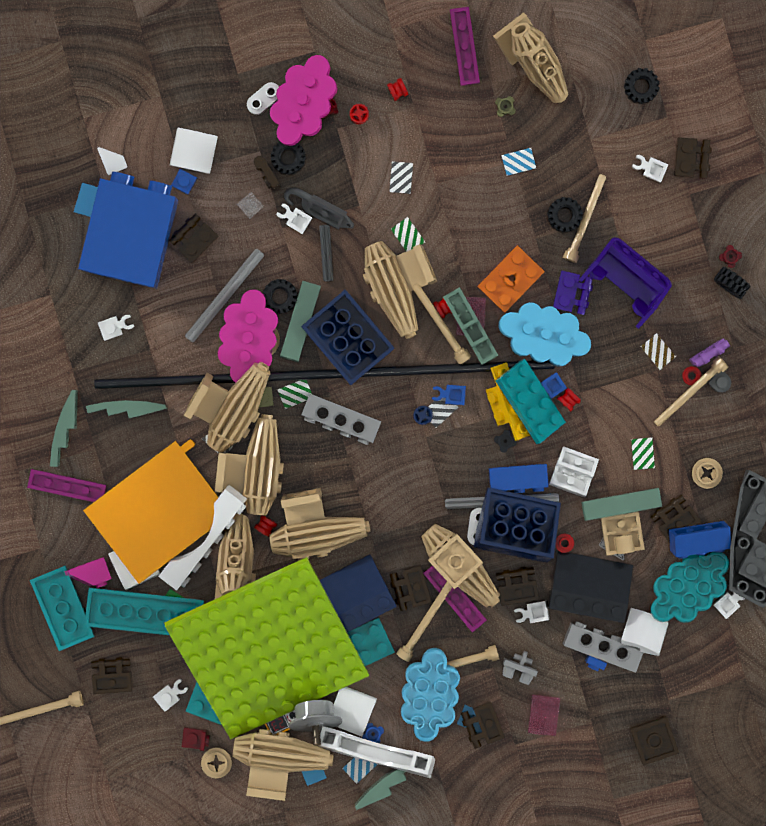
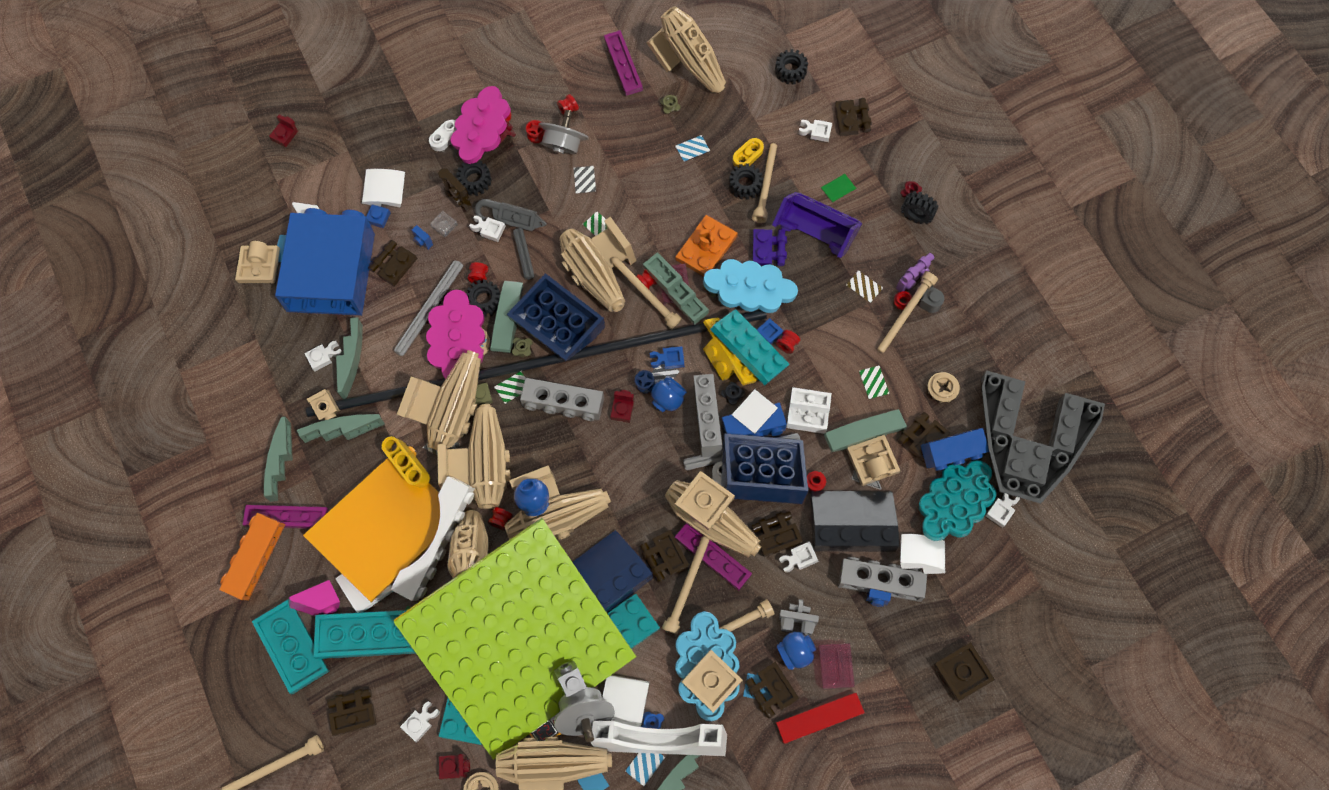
camera: 10 degrees left, 20 degrees down
(35, 521) = (252, 556): none -> orange brick
(58, 216) = (257, 263): none -> tan plate
(96, 62) = (284, 131): none -> dark red bracket
(113, 379) = (324, 397): none -> tan brick
(138, 343) = (348, 363): none -> sand green slope
(193, 463) = (397, 458): none -> yellow beam
(226, 218) = (421, 237): none -> blue plate
(278, 268) = (478, 272): none -> red wheel
(299, 520) = (532, 497): none -> blue piece
(308, 690) = (570, 678): none -> brick
(312, 360) = (522, 352): none -> olive plate
(385, 133) = (561, 137): none -> light grey piece
(397, 435) = (622, 406): none -> dark red bracket
(431, 710) = (711, 680): none -> tan plate
(442, 434) = (667, 394): none -> blue piece
(476, 463) = (707, 415): none -> light grey brick
(511, 697) = (796, 650): none -> blue piece
(519, 755) = (820, 718): none -> red tile
(521, 468) = (754, 411): none -> white sticker
(573, 182) = (746, 154): none -> yellow plate
(658, 236) = (838, 188): none -> green sticker

